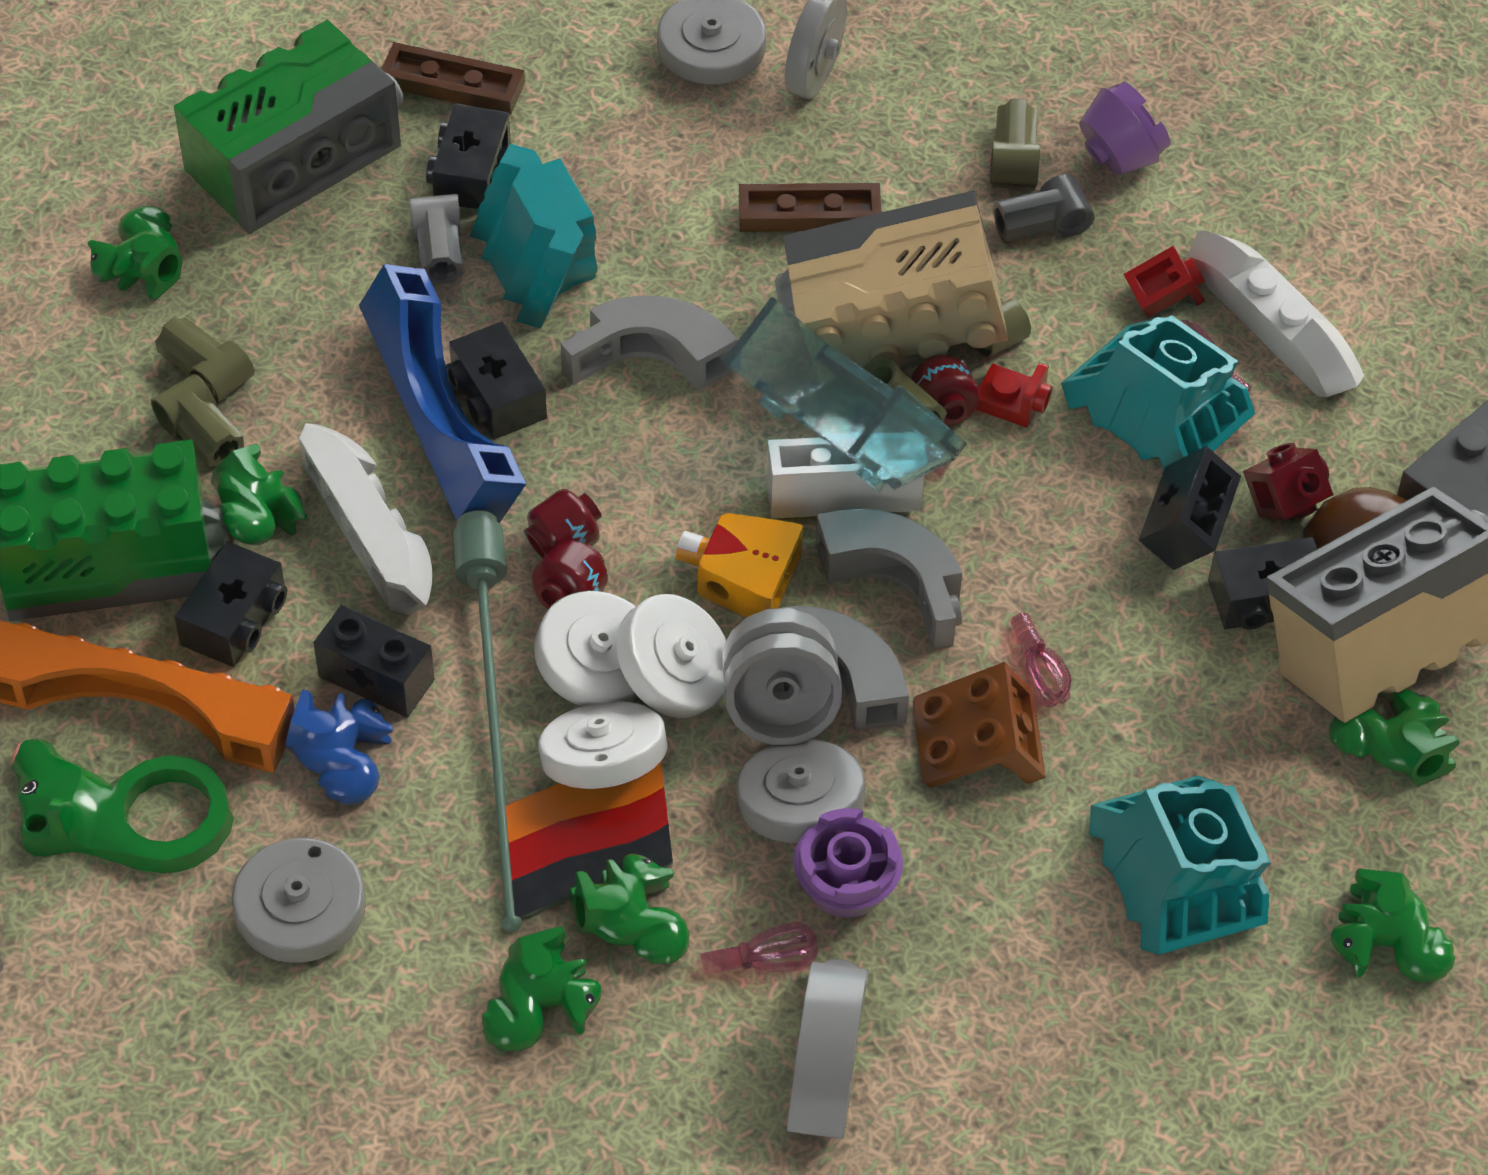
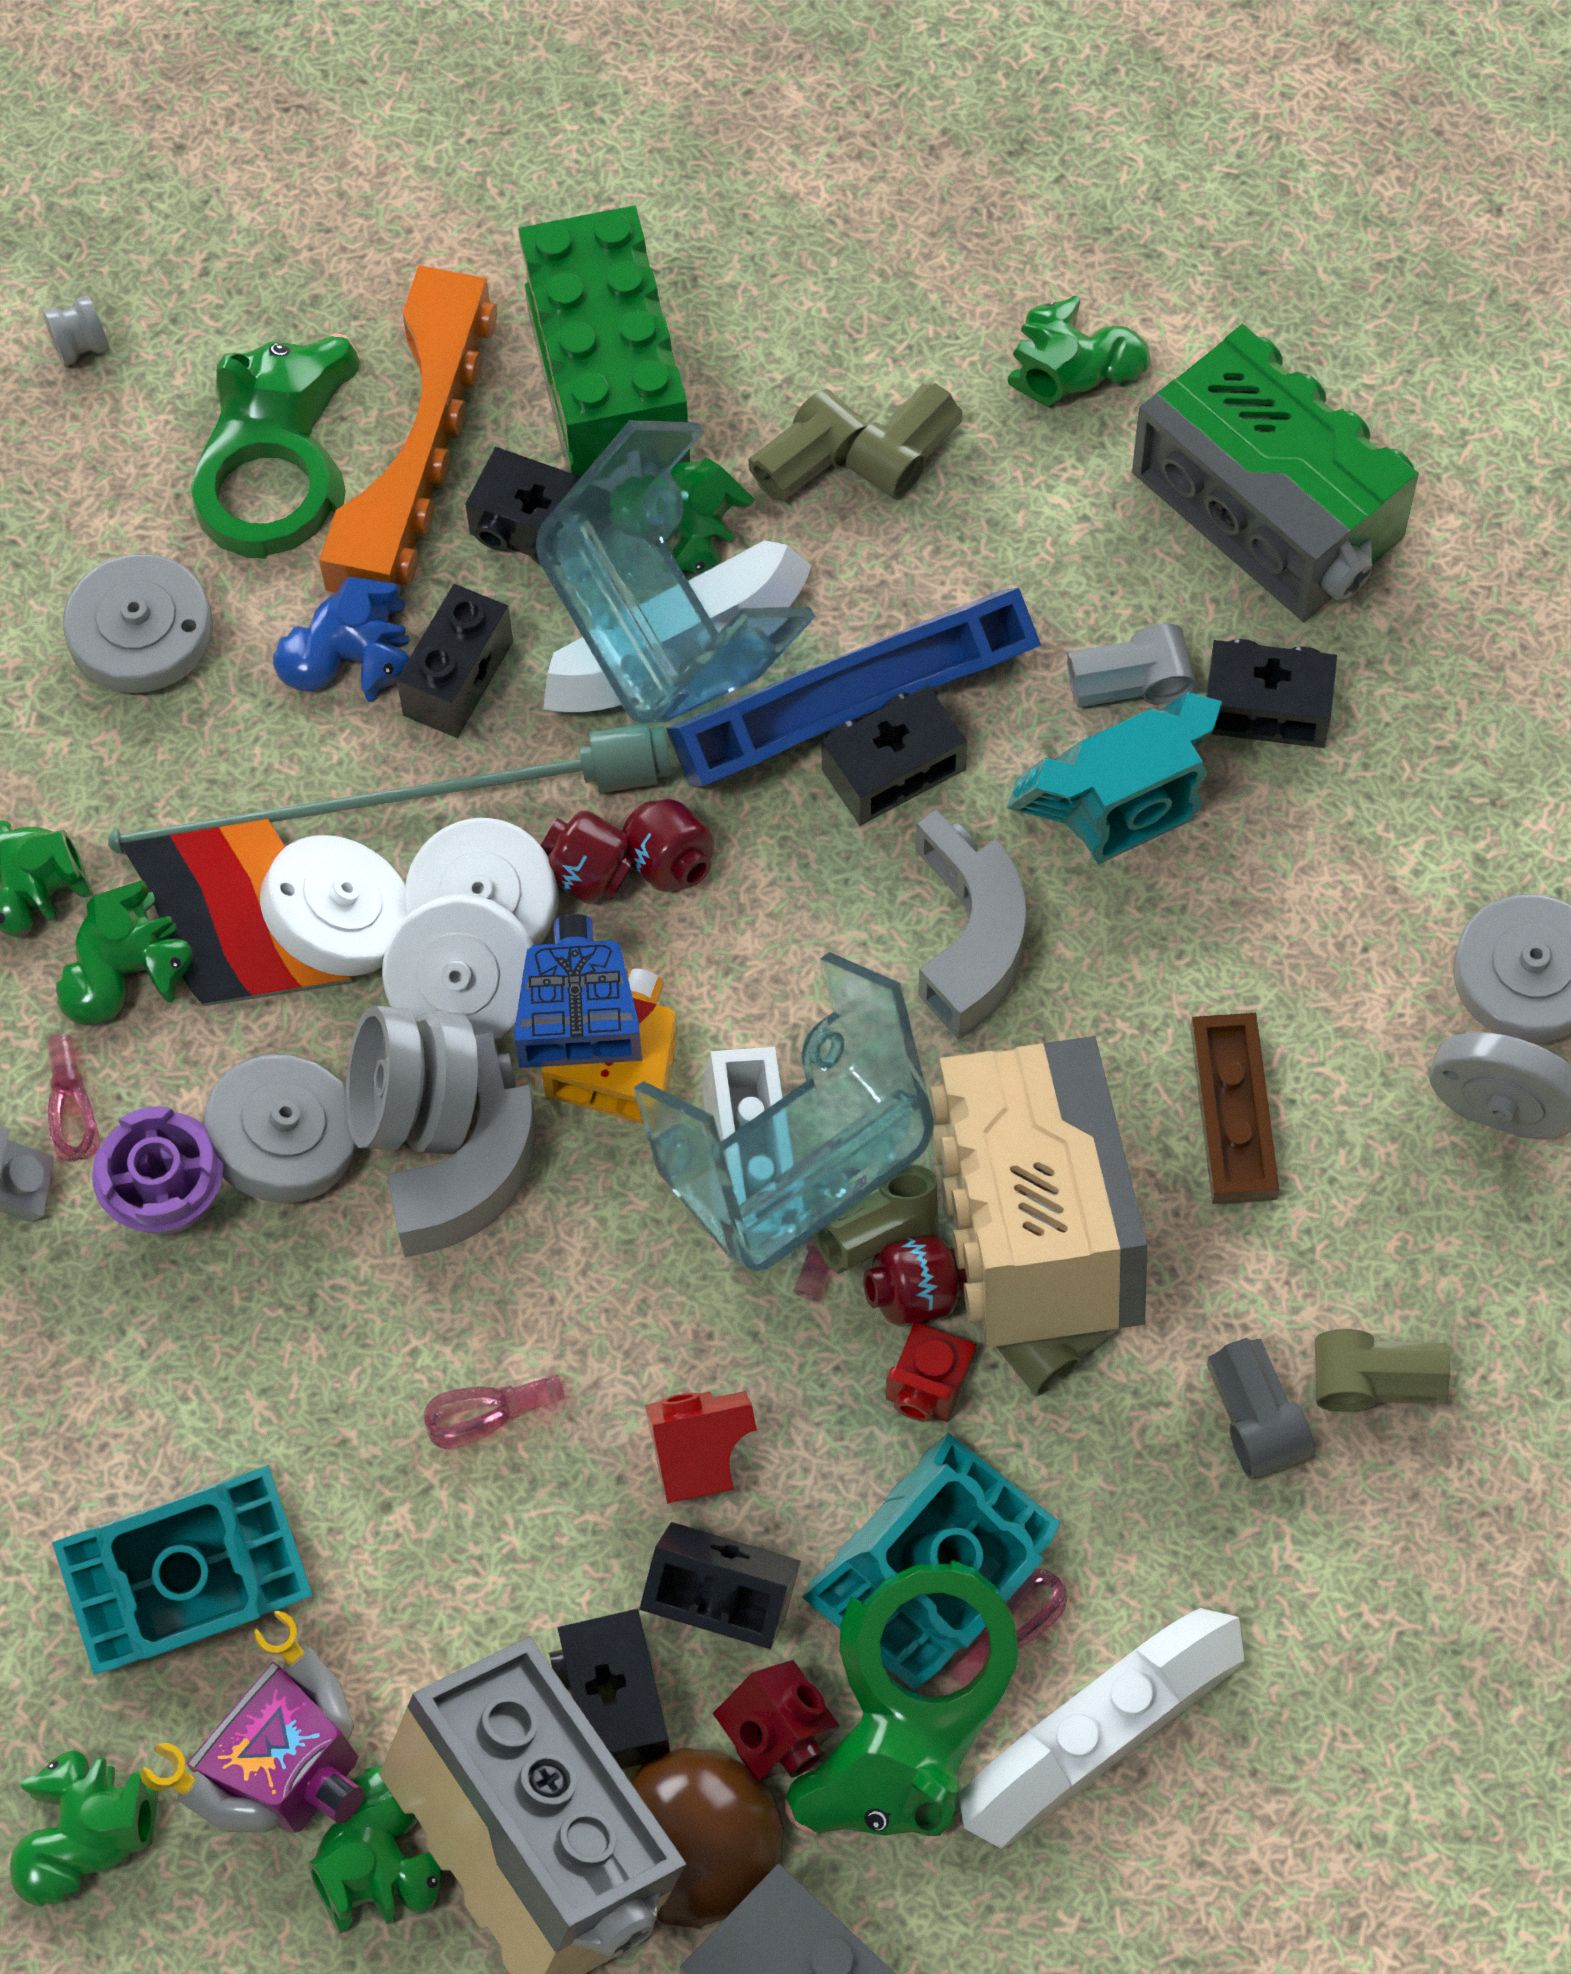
camera: 90 degrees right, 10 degrees up
(370, 513) = (629, 593): none -> clear light blue windscreen
(454, 78) = (1415, 662): reddish brown plate -> none
(721, 558) = (575, 1001): none -> blue torso
(899, 550) = (626, 1255): light grey arch -> none
(978, 725) = (376, 1338): dark orange bracket -> none
(1073, 521) = (695, 1441): none -> red brick
(1122, 130) = (1405, 1507): medium lavender cone -> none
(1165, 281) = (1142, 1576): red bracket -> none
(1311, 412) = (906, 1751): none -> green animal
(1328, 786) = (275, 1752): none -> torso

